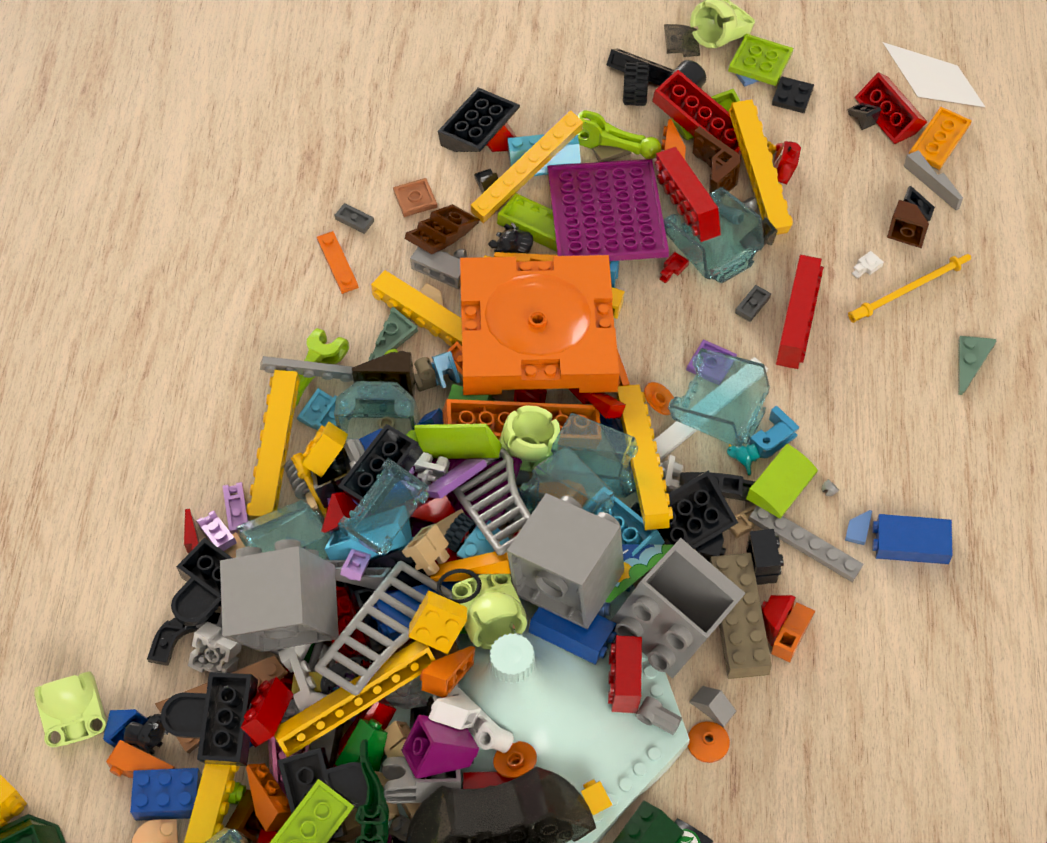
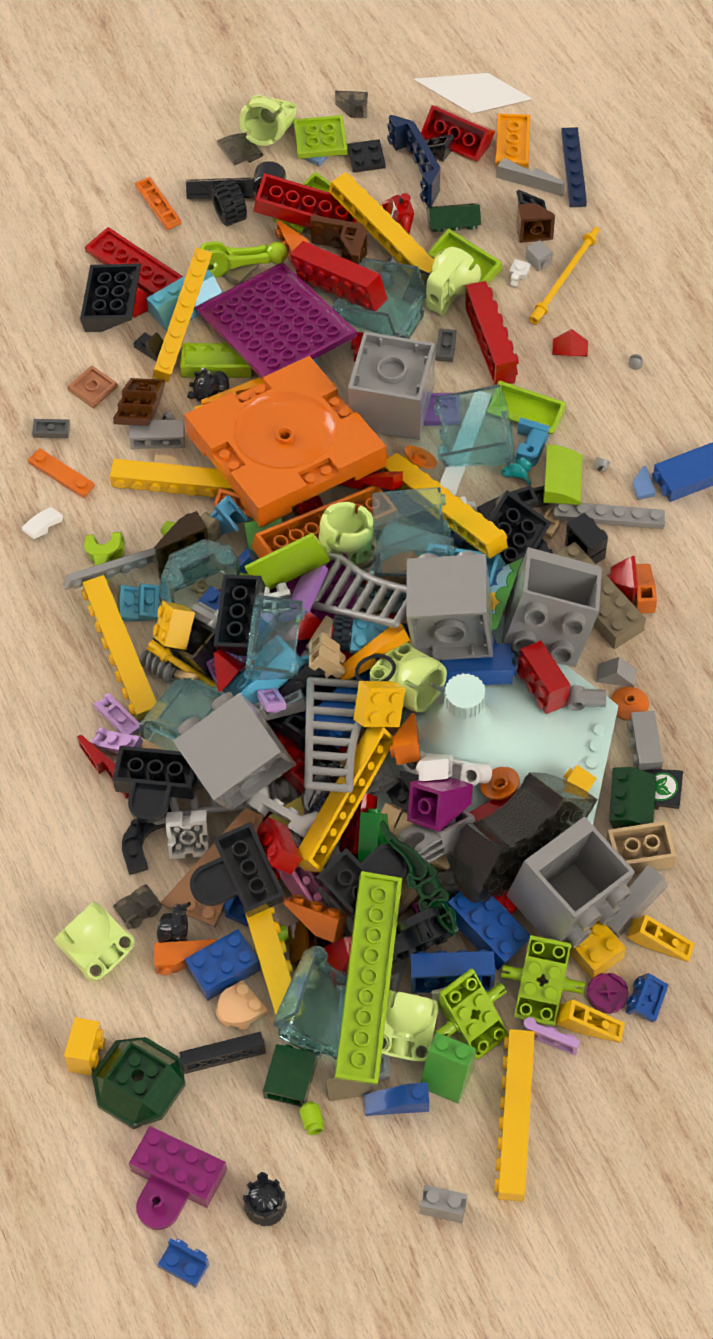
camera: 30 degrees left, 0 degrees up
(117, 723) = (145, 932): blue slope -> none
(133, 695) = (137, 907): none -> clear smoke brick
(286, 299) = (39, 523): none -> white slope
(395, 333) = (156, 510): sand green wing -> none
(513, 84) = (115, 249): none -> red plate
(577, 59) = (158, 203): none -> orange plate
(667, 317) = (393, 384): none -> light grey piece
(696, 789) = (645, 741): none -> light grey brick
(786, 242) = (449, 278): none -> yellowish green piece
(795, 399) = (533, 406): none -> lime slope
(811, 41) = (352, 103): none -> clear smoke slope
(823, 230) = (489, 265): none -> lime slope
(835, 91) = (406, 134): none -> dark blue slope
(837, 185) = (454, 217): none -> dark green slope
(873, 357) = (570, 344): none -> red slope
(895, 257) = (539, 255): none -> light grey brick
(927, 403) = (635, 361): none -> light grey hinge
(971, 355) = (647, 307): sand green wing -> none
(984, 188) = (573, 167): none -> dark blue plate

